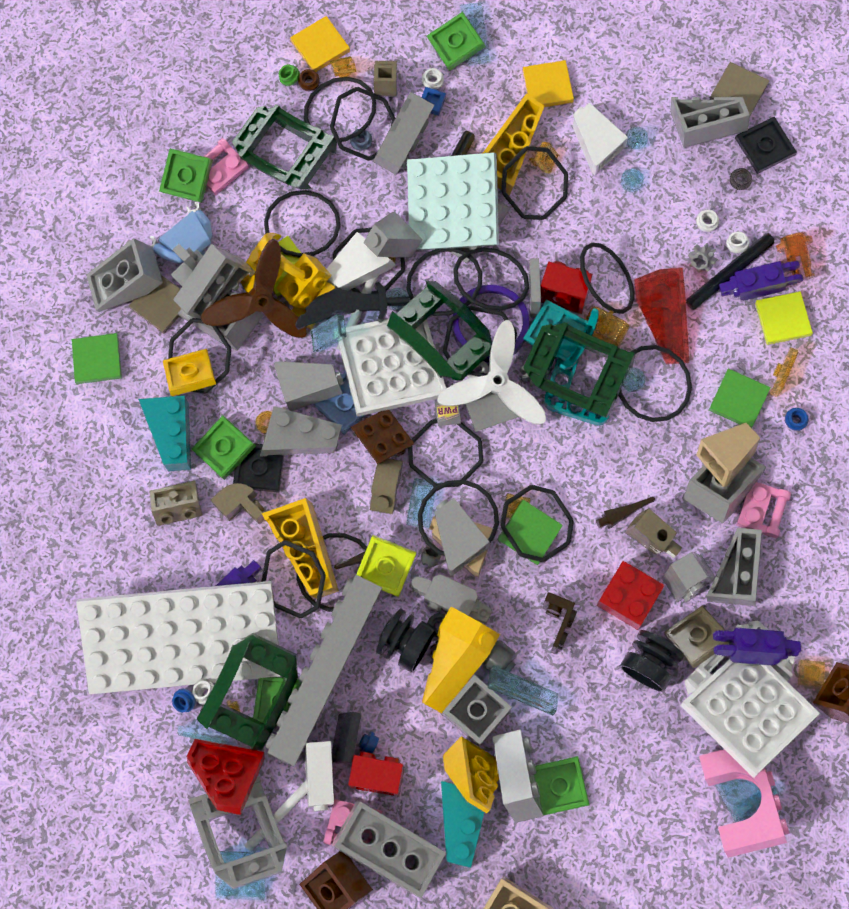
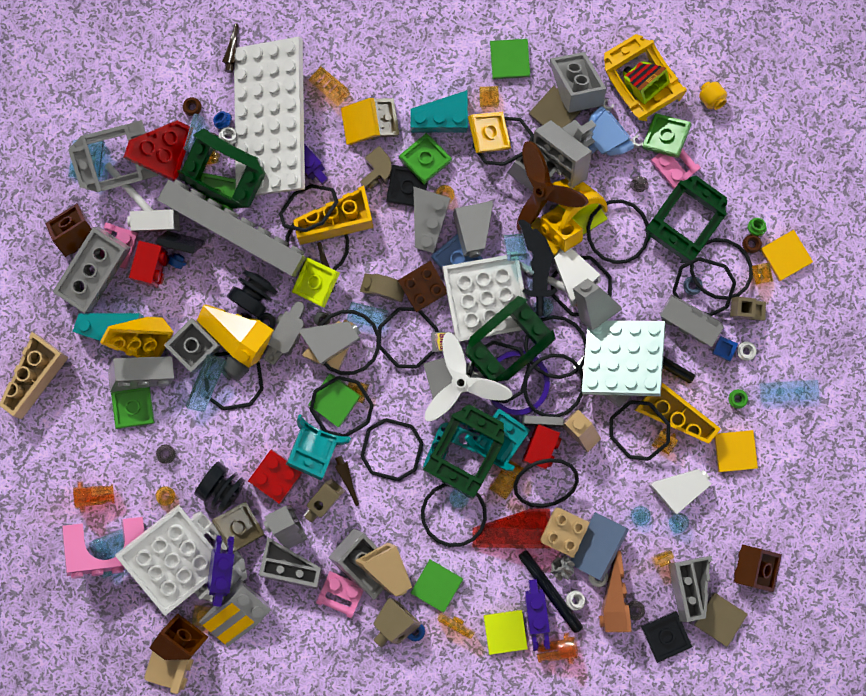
camera: 85 degrees right, 10 degrees up
(100, 697) = (229, 57): none -> dark brown piece
(121, 200) = (645, 80): none -> torso
(128, 566) = (338, 94): none -> clear yellow slope
(136, 129) = (713, 95): none -> yellow head
(141, 184) = (628, 51): none -> yellow wedge
(144, 378) = (489, 96): none -> clear yellow plate
(161, 737) = (189, 101): none -> reddish brown plate
(180, 526) = (360, 121): none -> yellow tile
(244, 203) = (639, 184): none -> clear smoke plate
(456, 41) = (781, 373): bright green tile -> none
(488, 79) = (744, 398): none -> bright green plate
(540, 244) = (581, 430): none -> tan slope
(545, 648) = (245, 404): none -> black piece
(556, 607) = (269, 417): dark brown bracket -> none
(590, 432) = (366, 441): none -> black piece
(593, 550) = (313, 449): none -> teal piece
(607, 737) = (159, 454): none -> clear smoke plate
(662, 253) = (564, 532): none -> tan bracket
(673, 219) = (599, 546): none -> sand blue tile
(675, 733) = (159, 495): none -> clear yellow plate
(678, 55) = (757, 568): none -> reddish brown slope
(678, 151) = (663, 558): none -> clear yellow plate
(680, 831) = (92, 496): none -> clear orange piece
(740, 198) = (614, 610): none -> nougat wedge
(791, 440) = (394, 623): none -> dark tan torso
(806, 622) = (237, 615): none -> light grey slope

